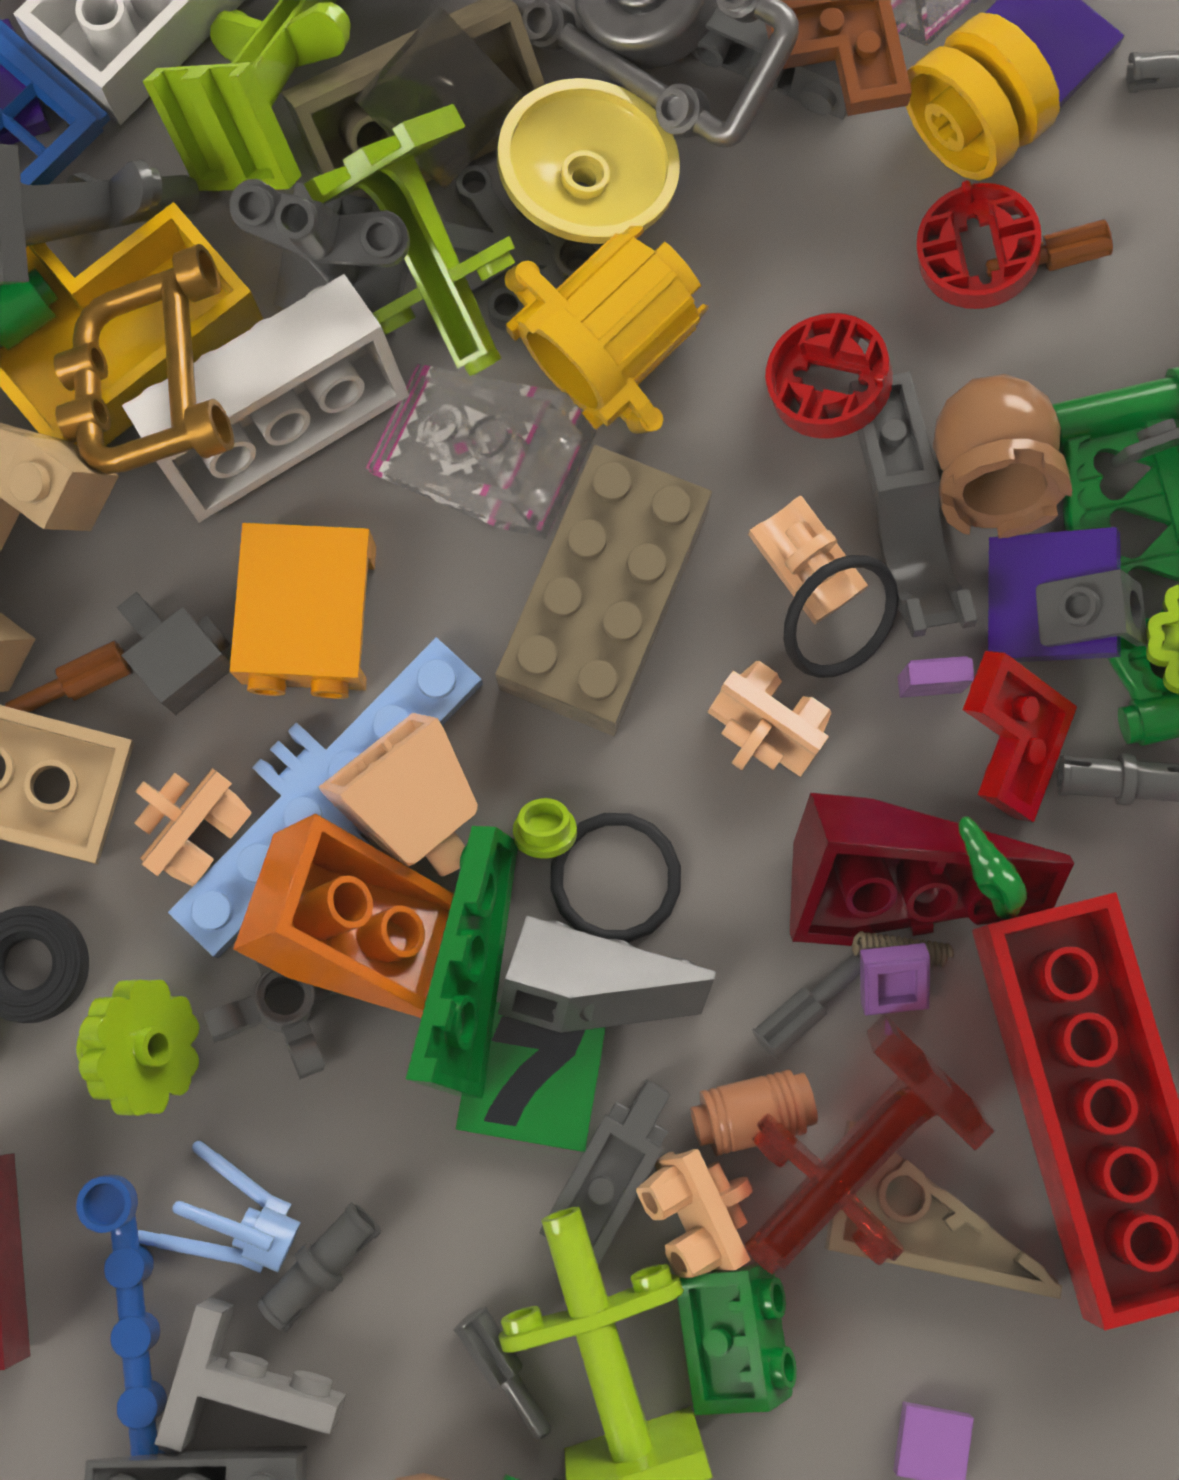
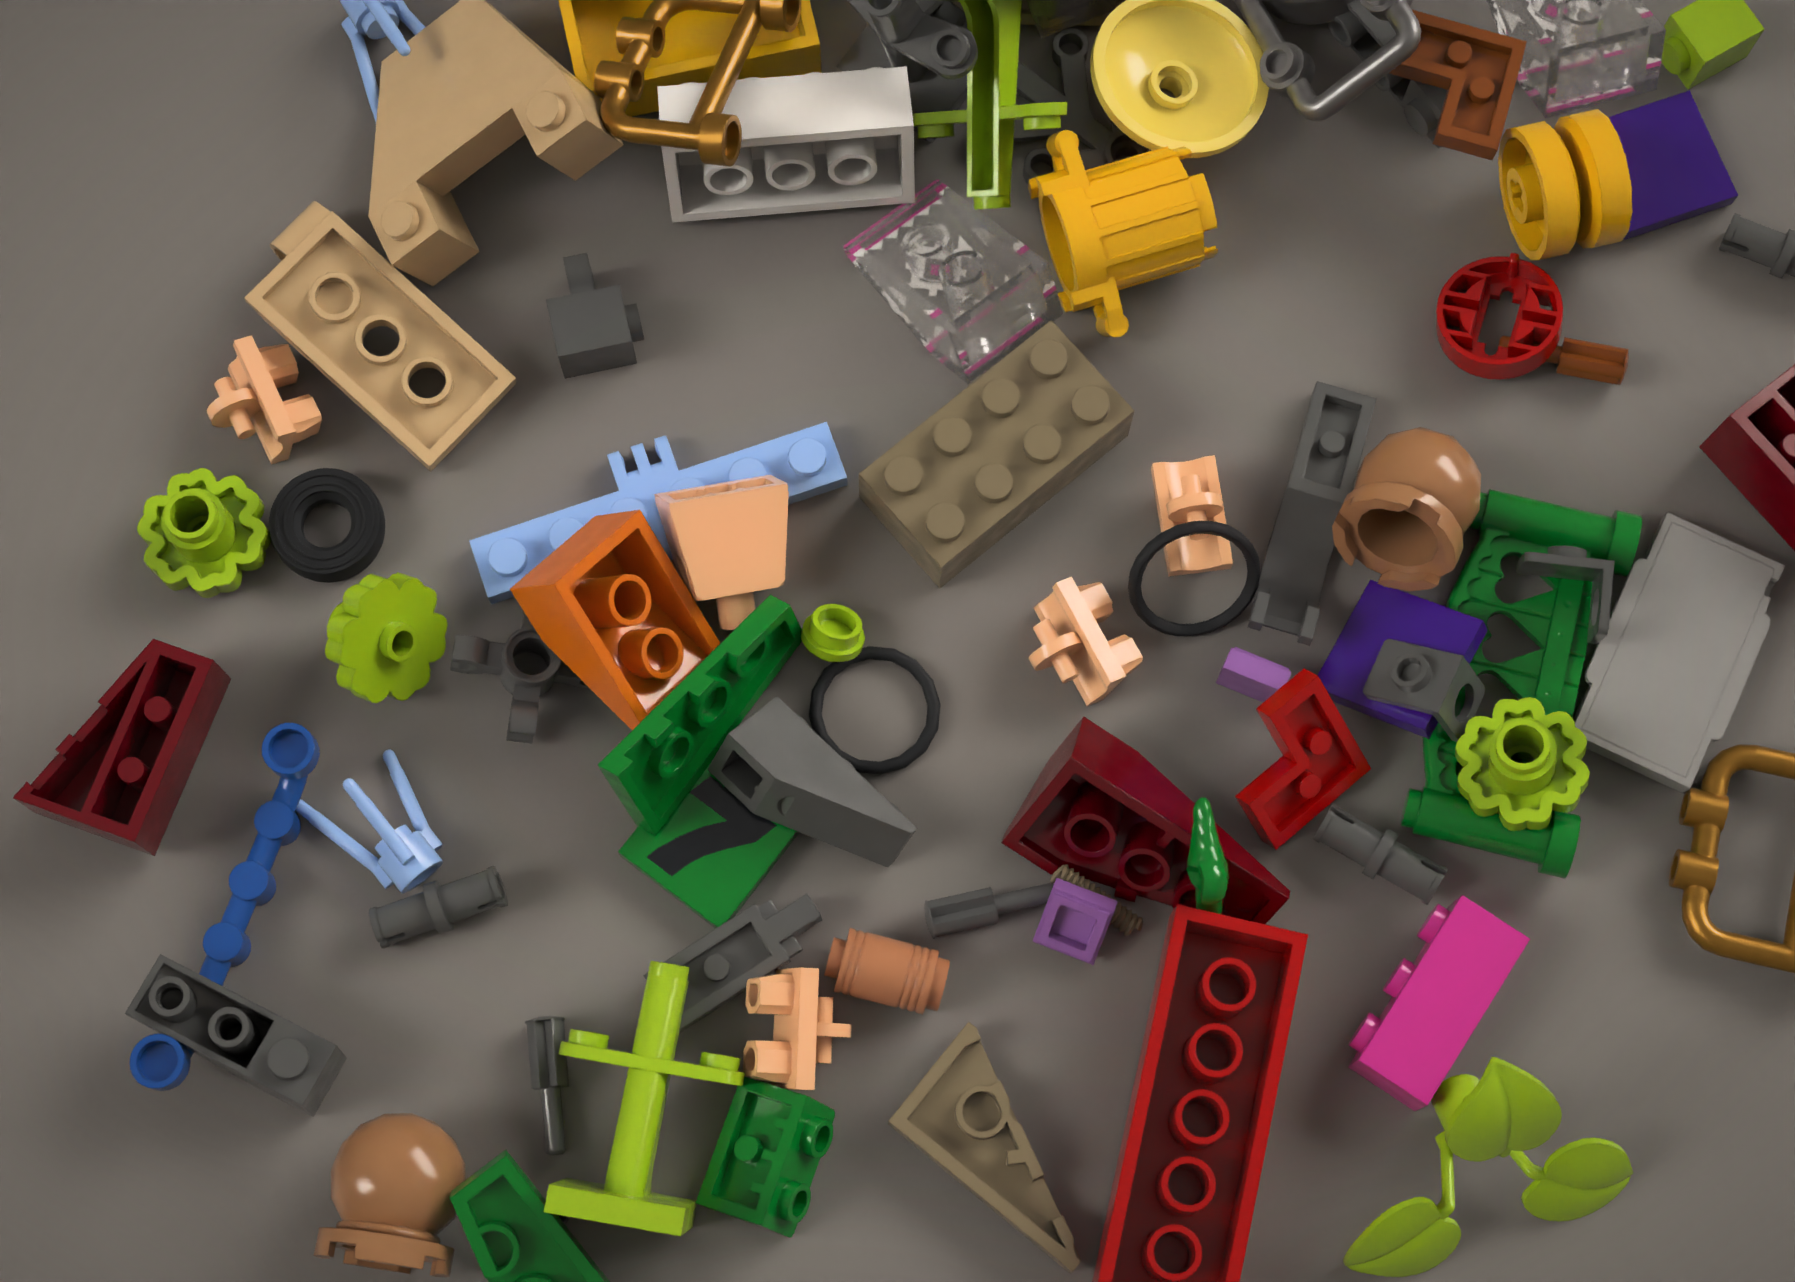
camera: 25 degrees right, 5 degrees down
(78, 678) = (499, 304): dark orange axle -> none
(171, 848) = (502, 489): light nougat hips -> none
(238, 1382) = (291, 943): light grey bracket -> none
(301, 608) = (721, 338): light orange panel -> none
(831, 343) = (1318, 339): red piece -> none
(831, 1184) = (1040, 1017): clear red piece -> none

